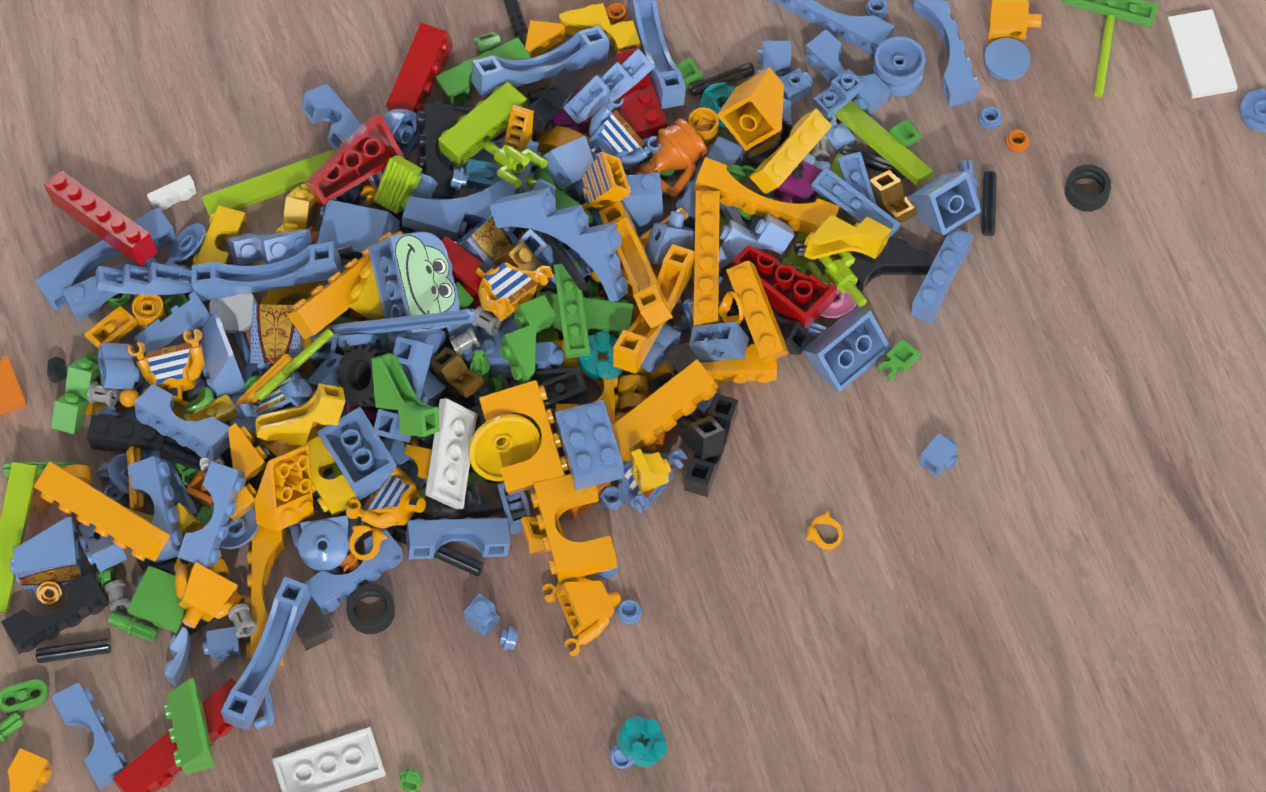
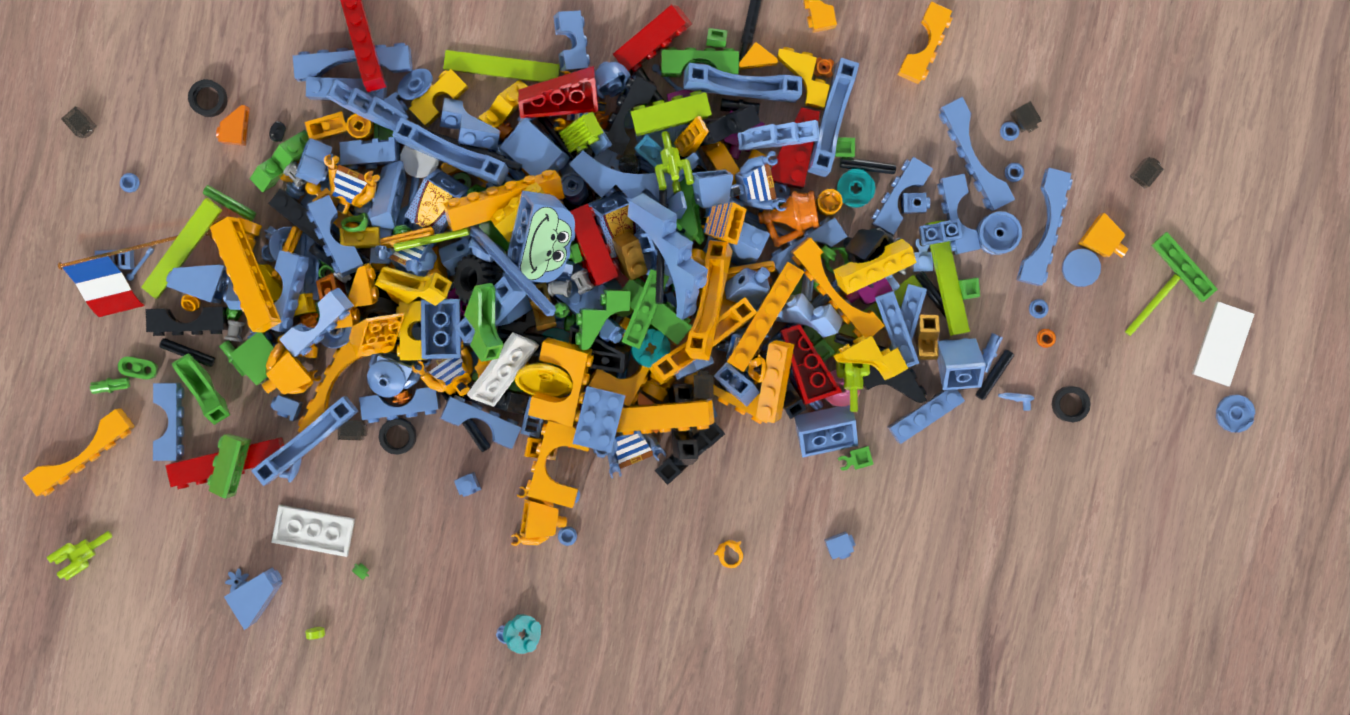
camera: 30 degrees right, 25 degrees up
(110, 672) = (201, 386): none -> bright green arch
(172, 193) = (418, 36): white plate -> none
(180, 649) = (256, 395): light blue slope -> none
(242, 620) = (303, 404): light grey bush -> none
(377, 538) = (423, 397): light orange piece -> none
(458, 179) = (629, 149): medium blue plate -> none
(508, 287) = (605, 274): torso -> none
(508, 638) = (477, 510): medium blue plate -> none
(649, 470) = (634, 454): yellow arch -> none
(754, 109) = (870, 215): light orange slope -> none
(1036, 208) = (1019, 397): none -> medium blue bar

